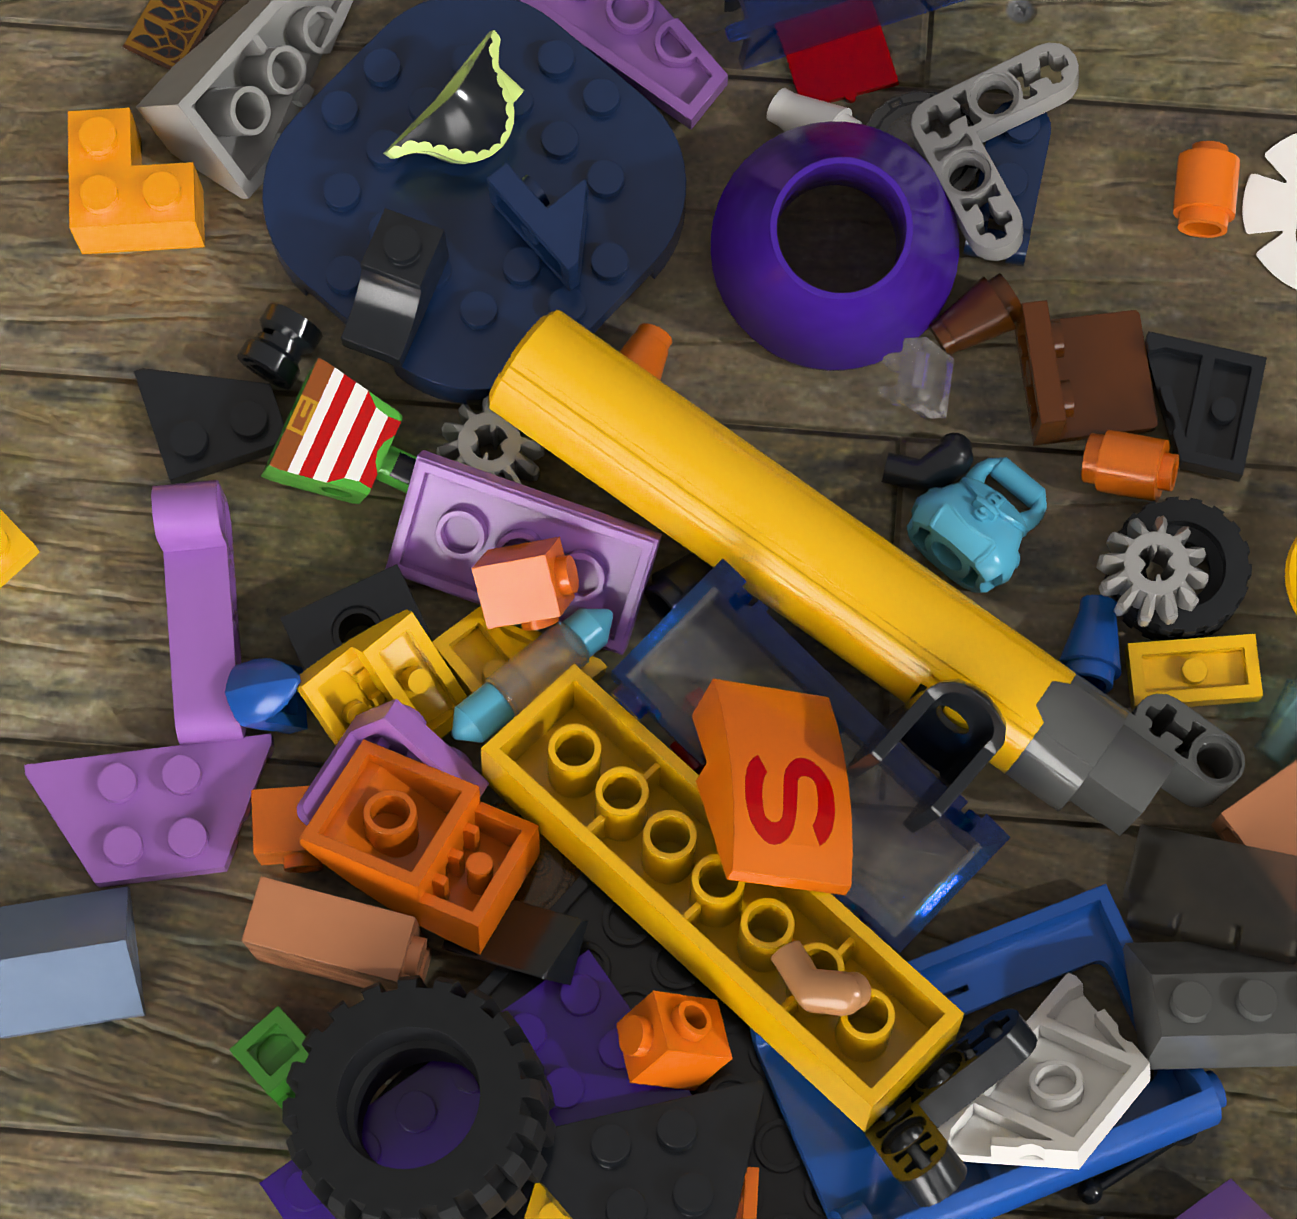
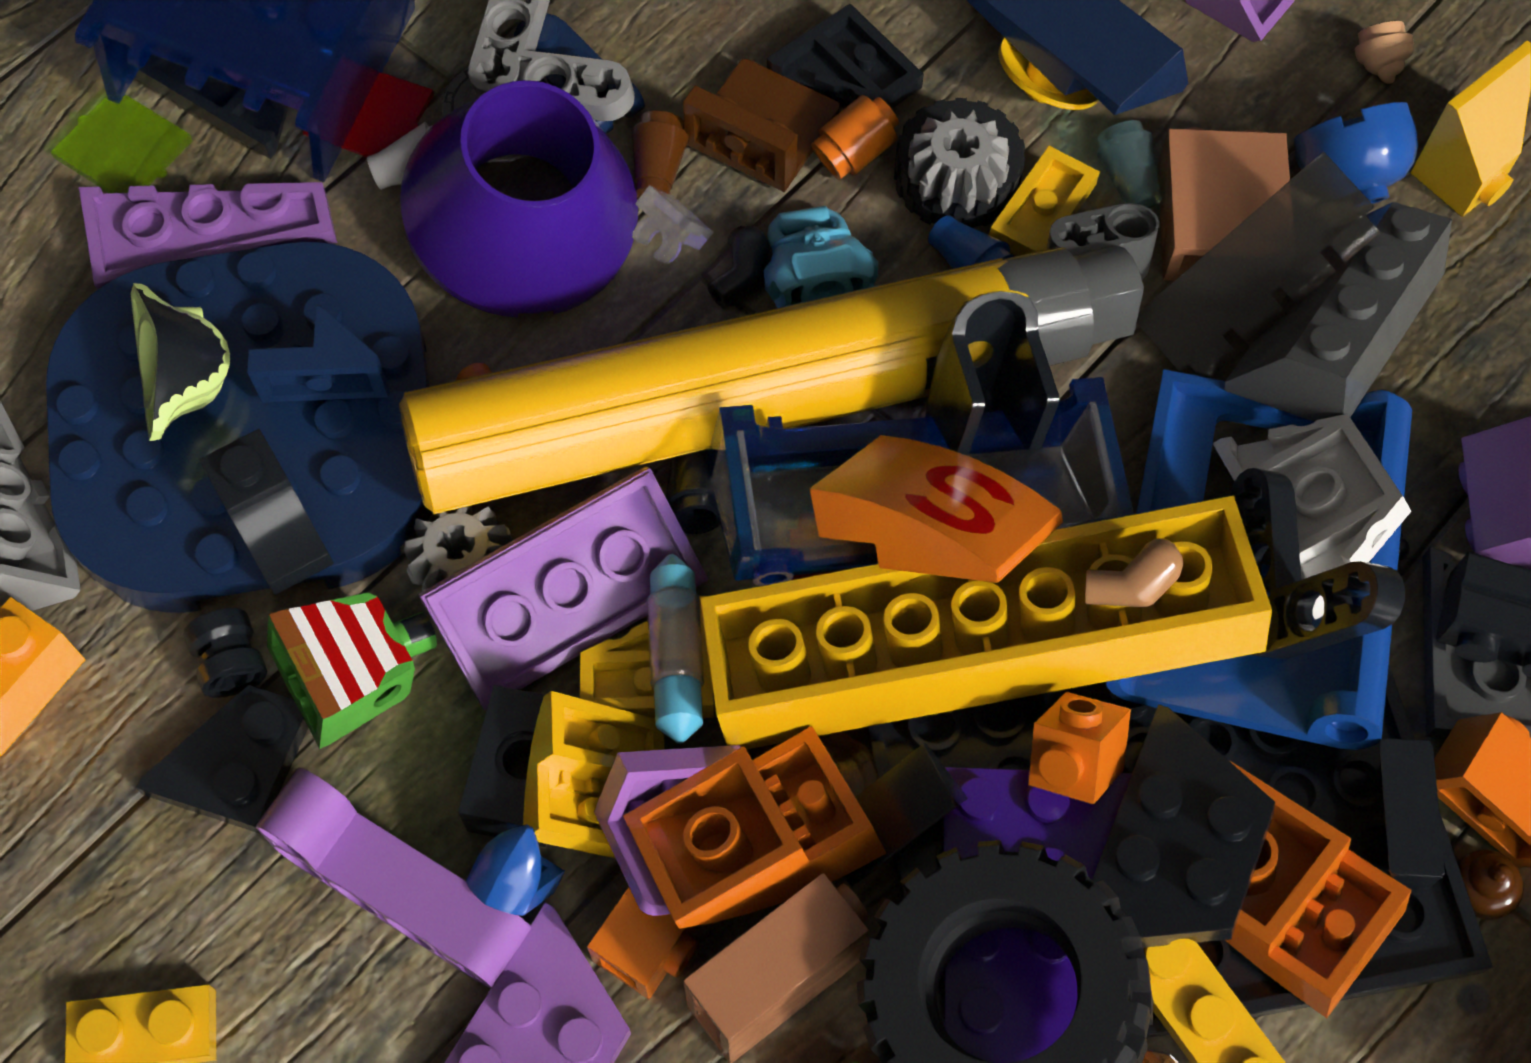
camera: 55 degrees left, 10 degrees down
(526, 584) = (600, 593): brick -> none

